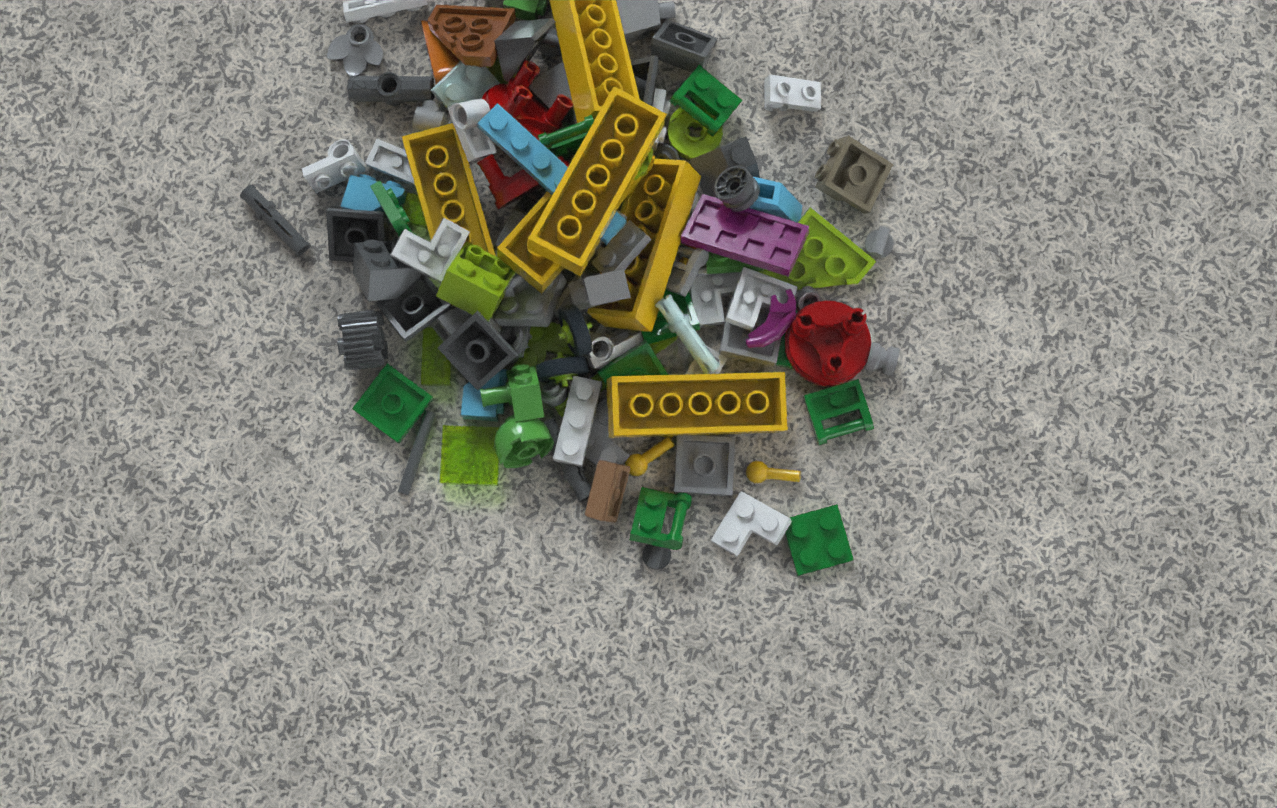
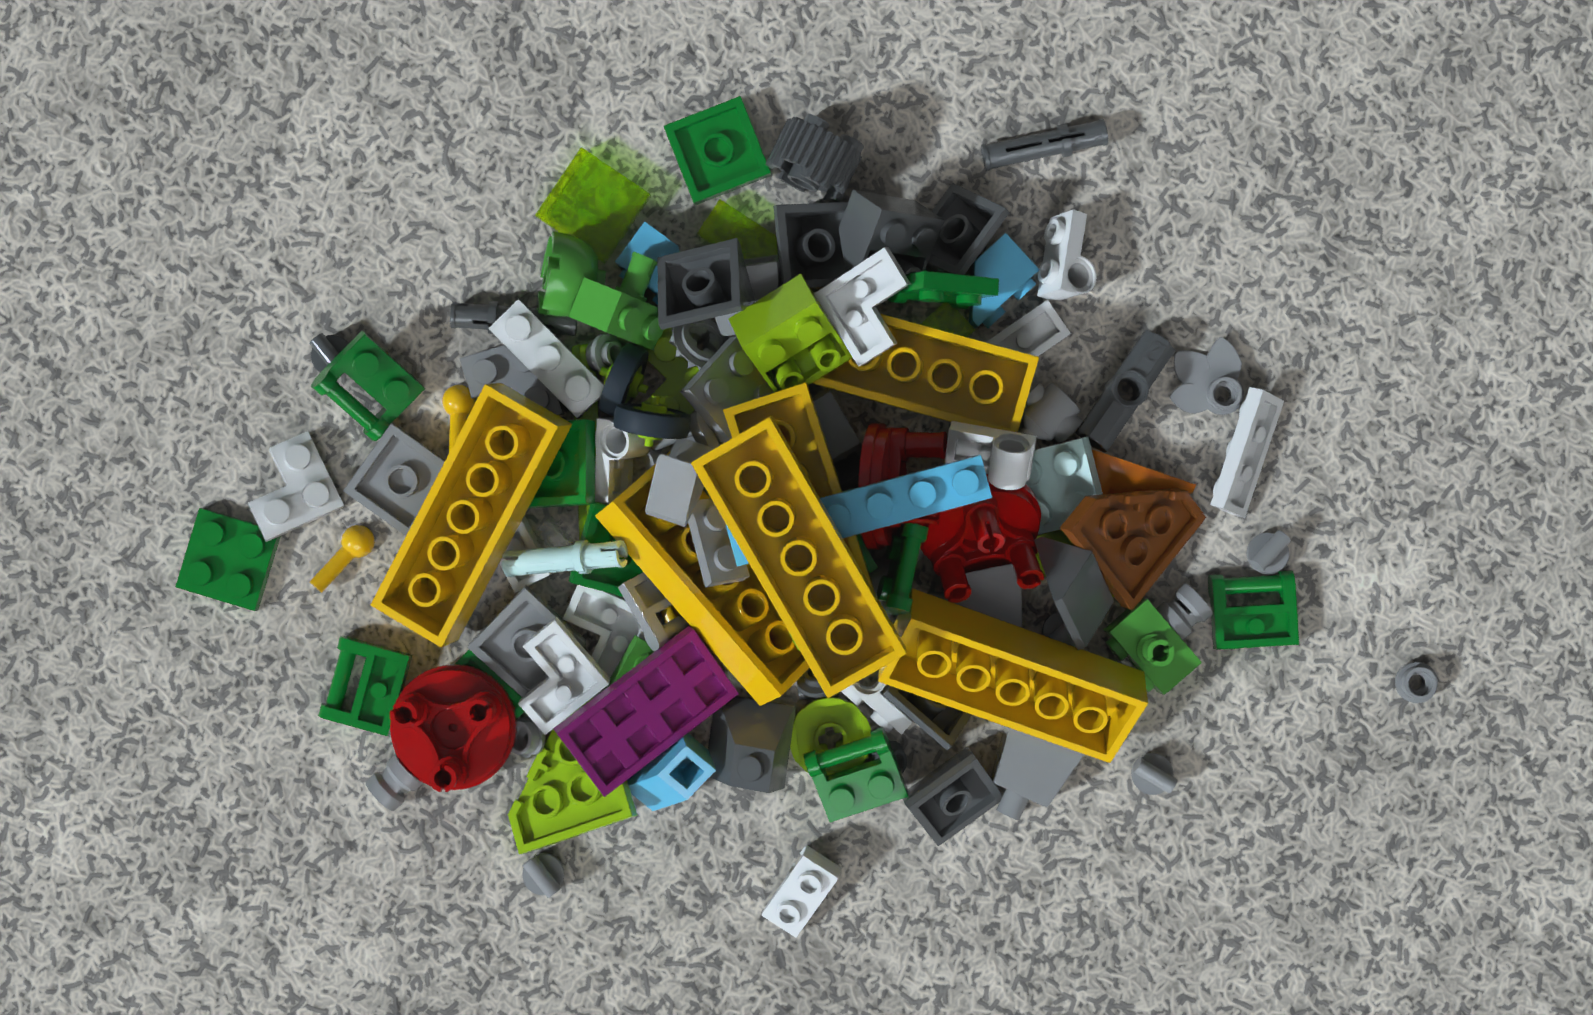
camera: 125 degrees right, 10 degrees up
(416, 453) = (639, 144): dark grey bar -> none
(607, 491) = (442, 342): medium nougat slope -> none
(737, 188) = (719, 727): dark grey wheel -> none
(776, 324) = (512, 680): magenta piece -> none
(853, 174) = (649, 899): dark tan plate -> none

